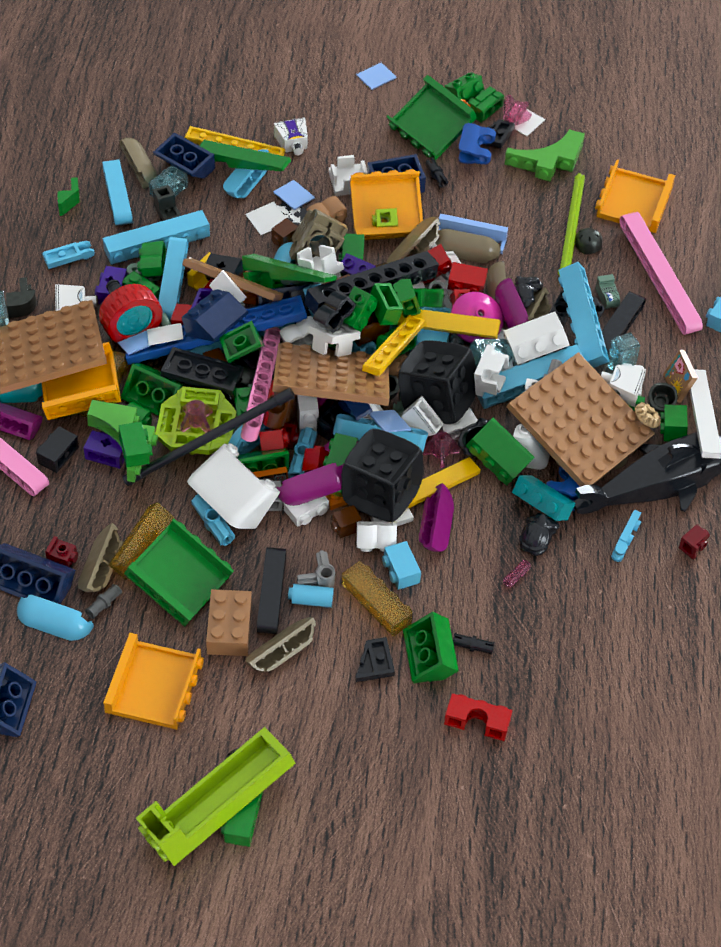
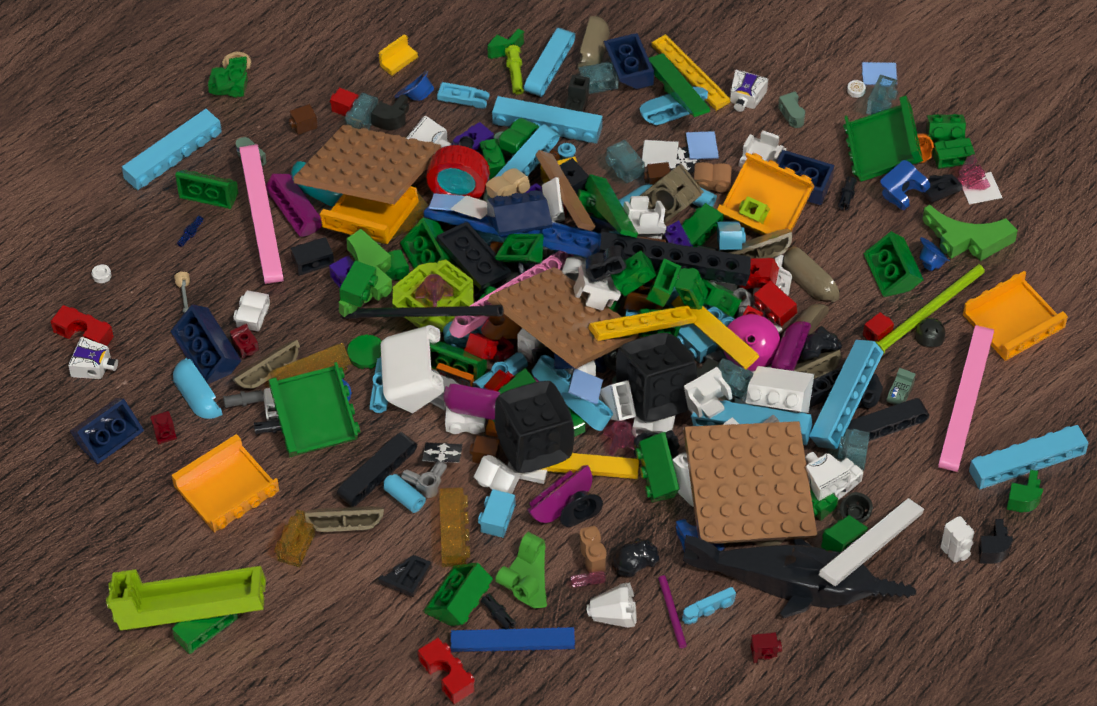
camera: 40 degrees right, 0 degrees up
(26, 266) = (418, 89): none -> blue piece
(45, 523) = (252, 310): none -> white brick
(55, 667) = (163, 427): none -> dark red brick
(88, 208) = (514, 63): none -> lime pin
(131, 591) = (269, 404): none -> white bar
(149, 608) = (267, 426): none -> black pin
(174, 499) = (364, 351): none -> green tile
(180, 300) = (509, 183): none -> tan brick
(196, 252) = (566, 150): none -> medium azure brick
(229, 622) = (320, 474): medium nougat brick -> none
(250, 235) = (625, 161): none -> clear light blue brick
(258, 691) = (295, 540): none -> clear yellow brick
(312, 544) = (442, 452): none -> black sticker
(340, 133) = (791, 111): none -> sand green leg
(371, 94) = (856, 88): none -> white tile
(384, 248) = (730, 235): none -> medium azure brick
(399, 88) = (882, 95): none -> clear light blue brick
(462, 519) = (580, 507): none -> black piece
(464, 598) = (527, 572): none -> bright green panel
(493, 231) = (831, 263): light blue fence -> none
(503, 658) = (512, 639): none -> blue tile
(504, 548) = (592, 549): none -> medium nougat brick
(519, 207) = (893, 265): none -> green slope
(542, 186) = (931, 255): none -> blue piece
(543, 497) = (663, 529): teal brick -> none
(552, 258) = (878, 327): none -> red brick
(562, 580) = (614, 606): none -> white cone
(601, 558) = (672, 612): none -> magenta bar
(647, 415) = (815, 517): tan gear -> none
(680, 374) = (888, 498): medium nougat tile -> none

